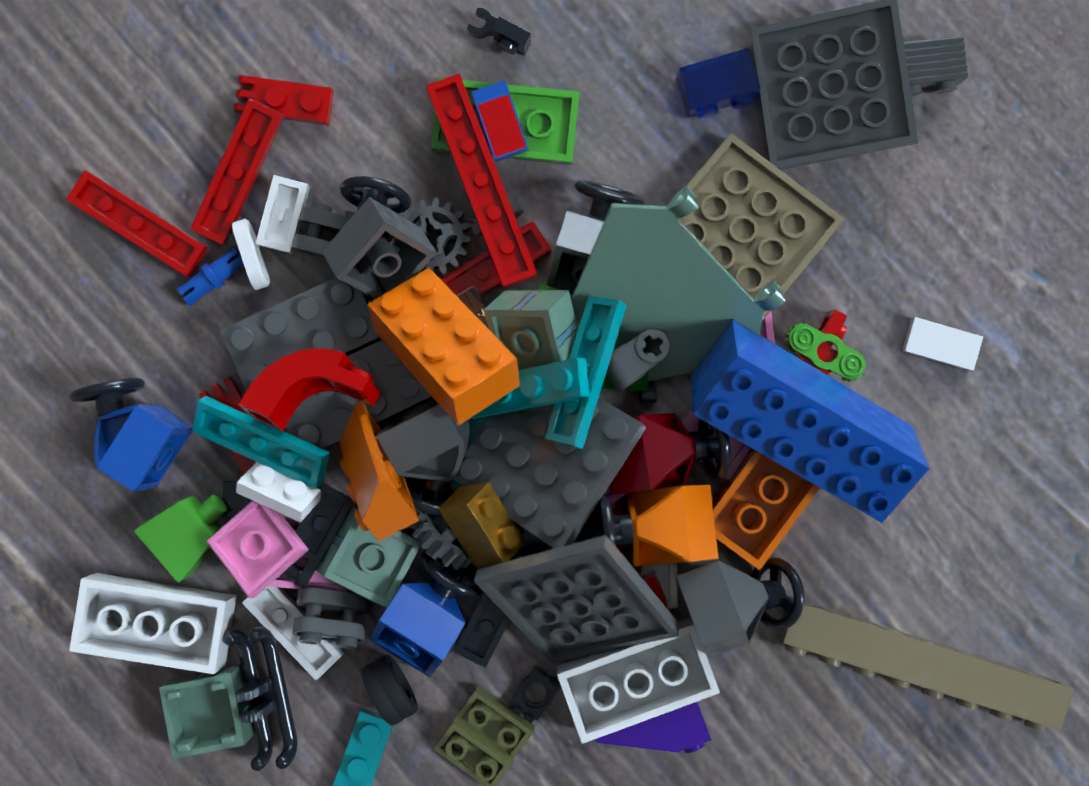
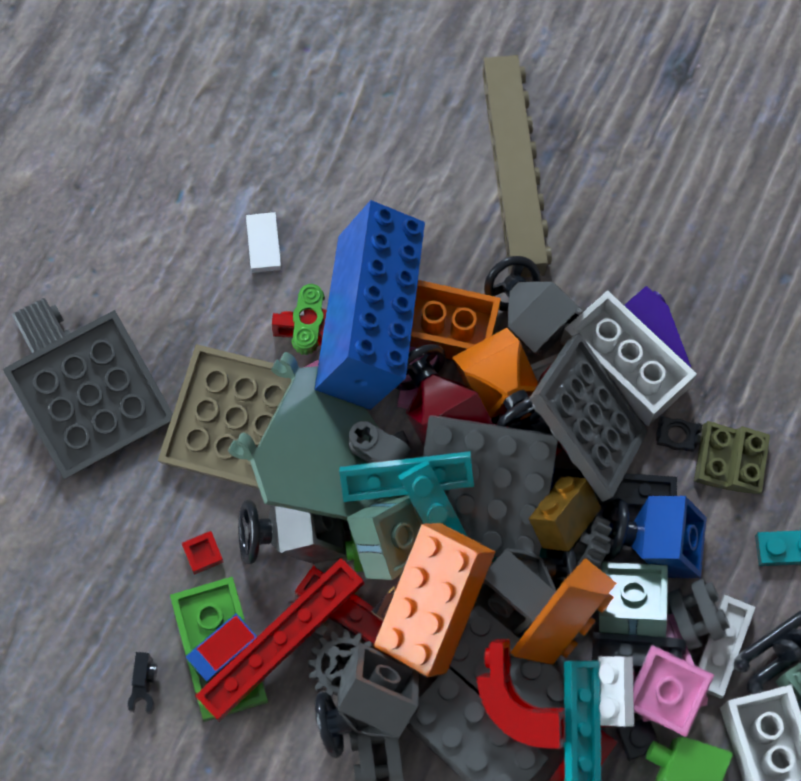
camera: 115 degrees left, 20 degrees down
(389, 690) = (731, 542): black tyre -> none
(612, 142) = (202, 552): none -> red plate
(718, 84) = (120, 487): clear blue piece -> none

